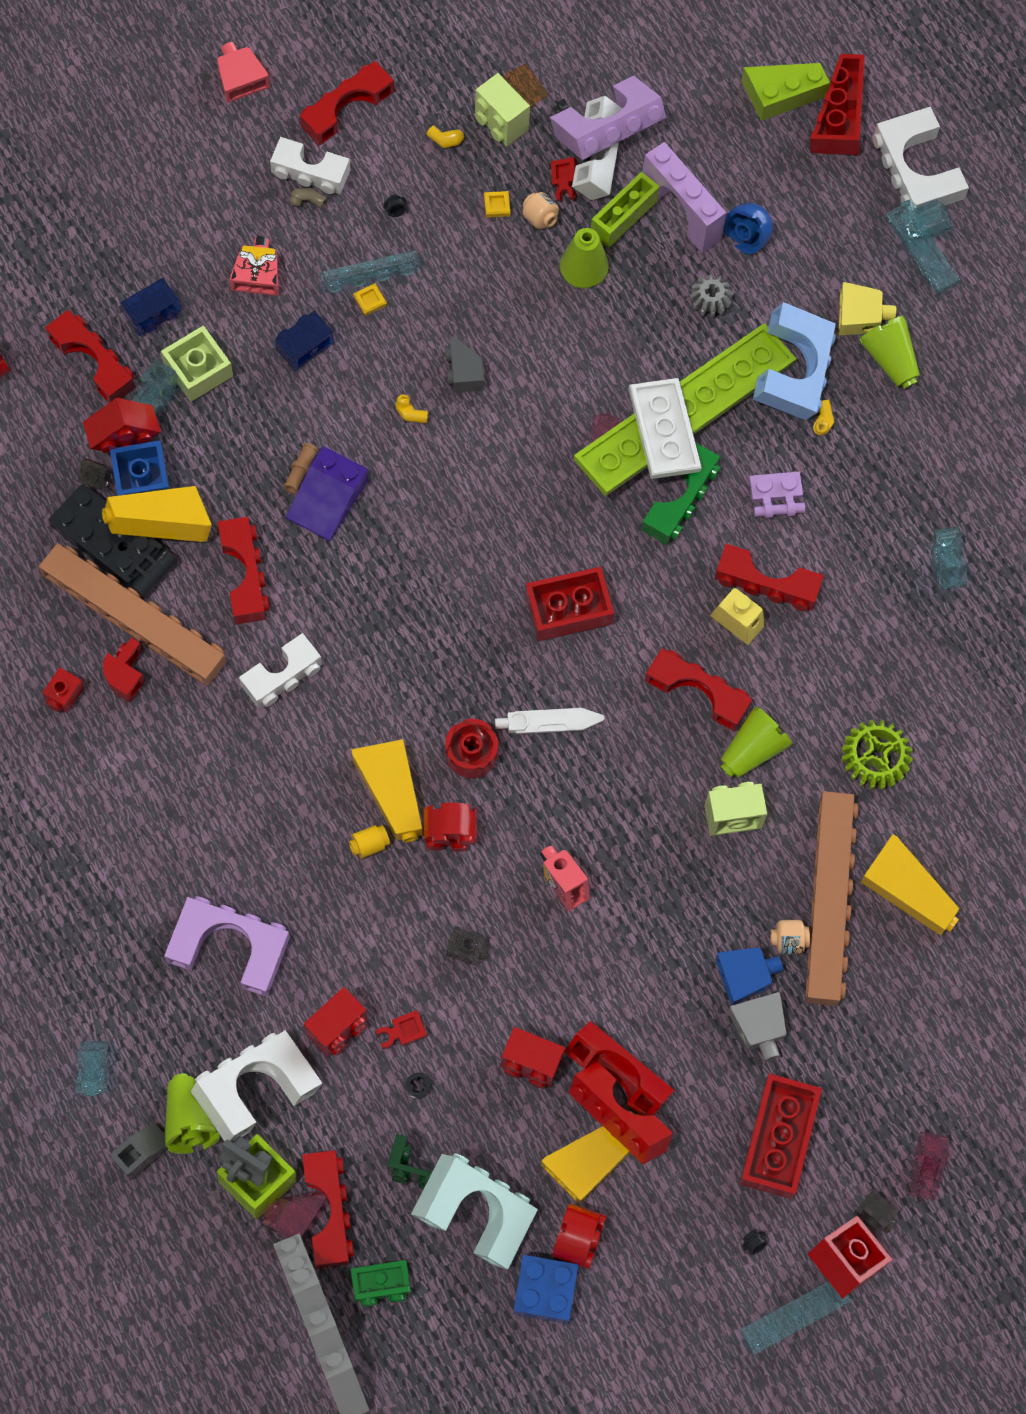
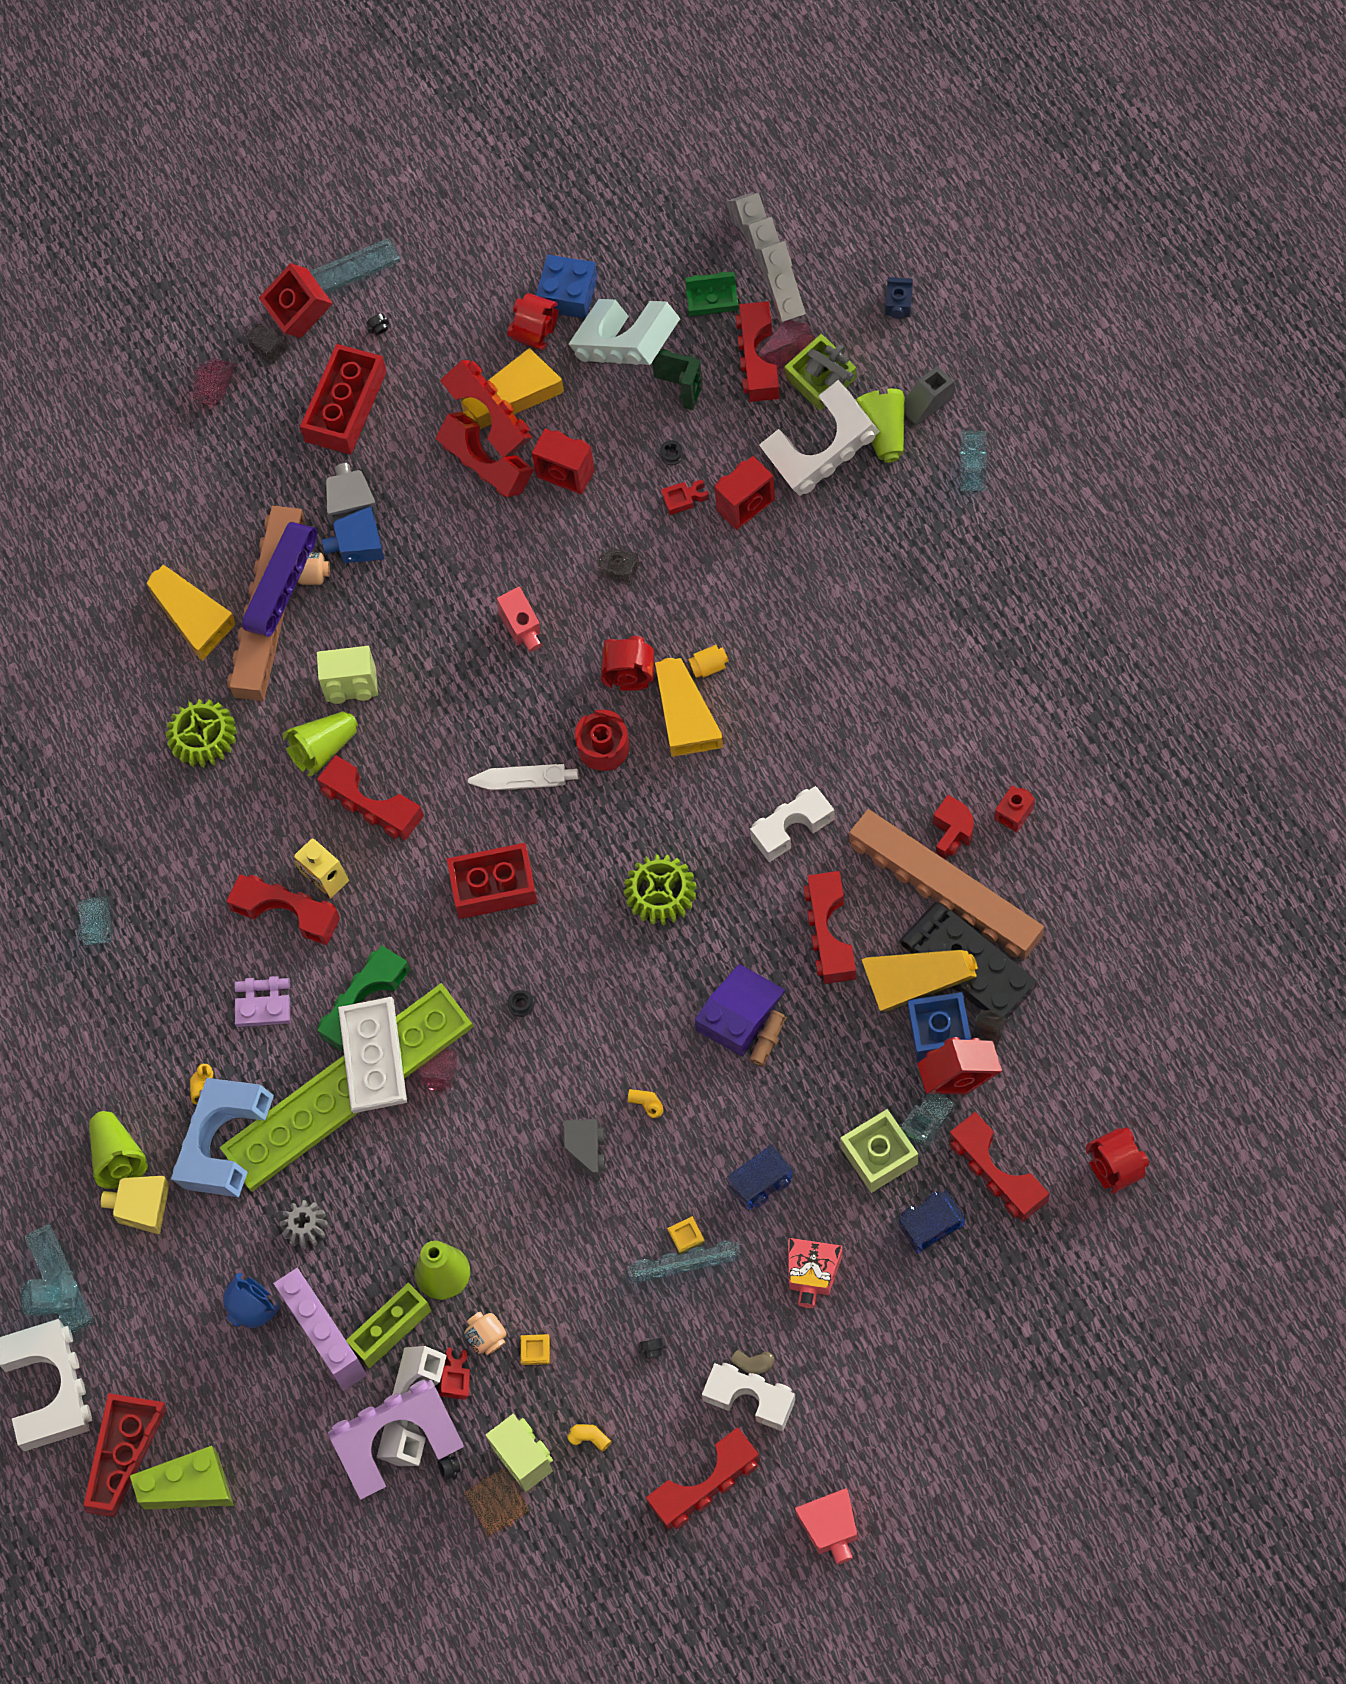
camera: 165 degrees left, 5 degrees down
(170, 1292) = (899, 297): none -> dark blue brick
(202, 919) = (871, 592): lavender arch -> none
(420, 589) = (647, 872): none -> lime gear
(530, 491) = (517, 996): none -> black plate
(817, 905) = (279, 579): none -> dark purple beam

